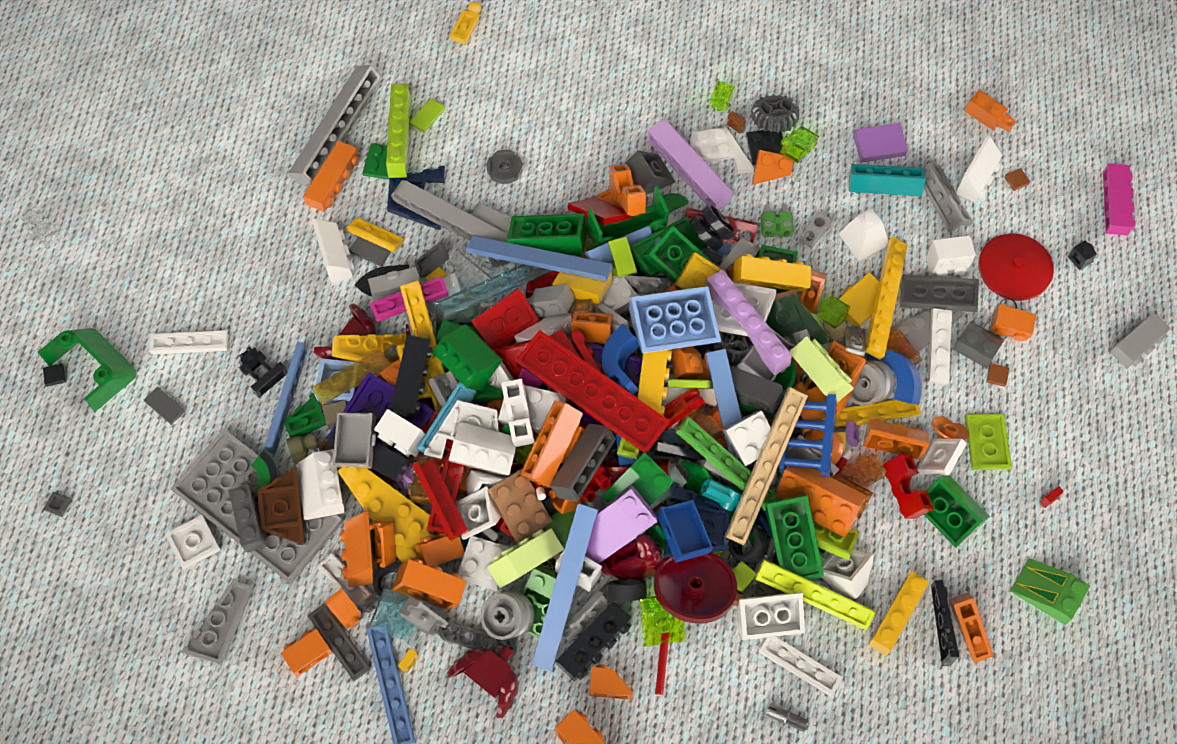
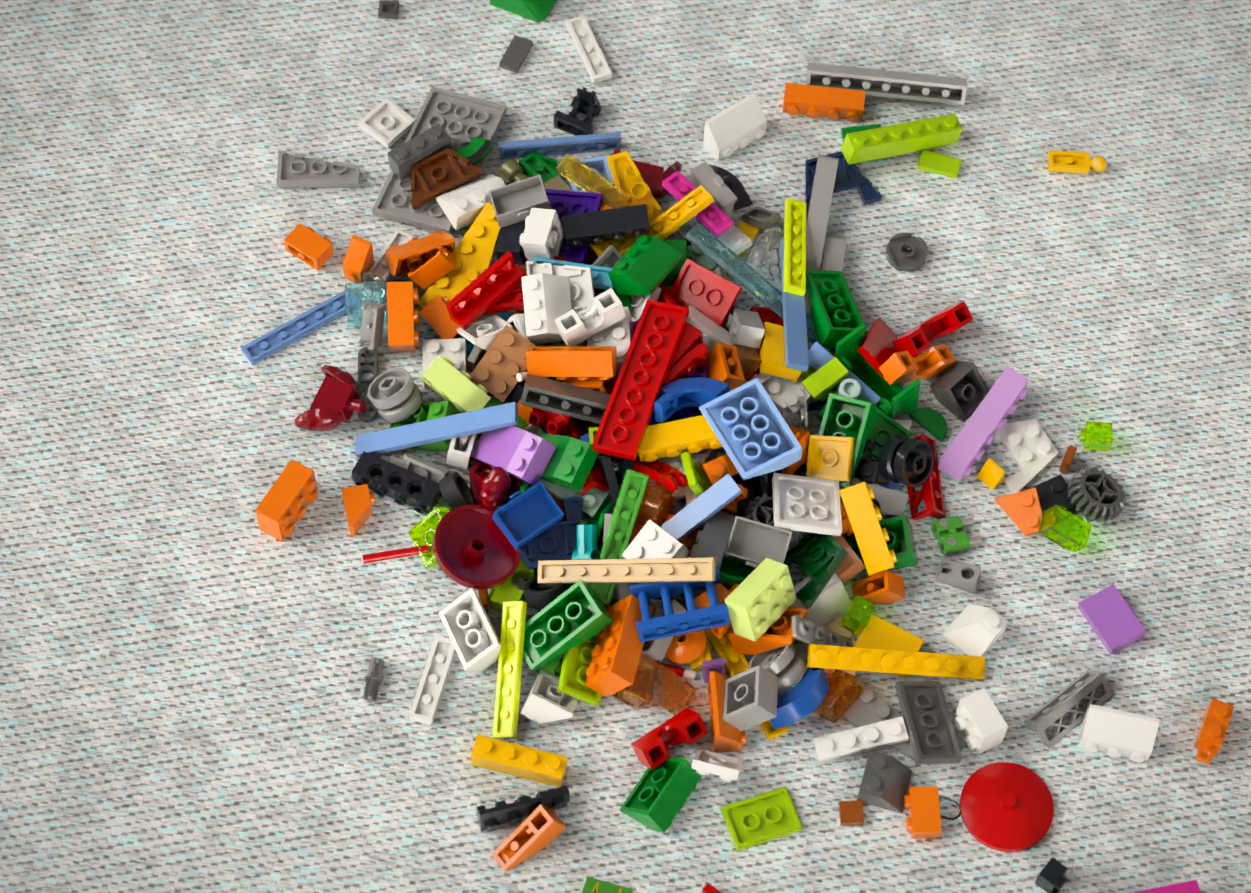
camera: 70 degrees right, 5 degrees down
(339, 642) = (324, 275): dark grey tile -> none
(369, 251) = (752, 164): dark grey tile -> none
(375, 234) = (773, 162): yellow tile -> none
(408, 661) = (327, 331): yellow tile -> none
(480, 240) = (794, 247): none -> neon yellow tile
(584, 156) = (940, 324): none -> red arch
(639, 243) = (850, 388): none -> light aqua tile
(732, 177) = (991, 474): none -> yellow slope
(767, 344) = (762, 534): lavender arch -> none
(886, 180) = (1059, 633): teal brick -> none
(901, 409) = (750, 698): none -> light grey brick
(949, 430) = (757, 770): orange dish -> none
(1017, 179) = (1132, 785): dark orange tile -> none

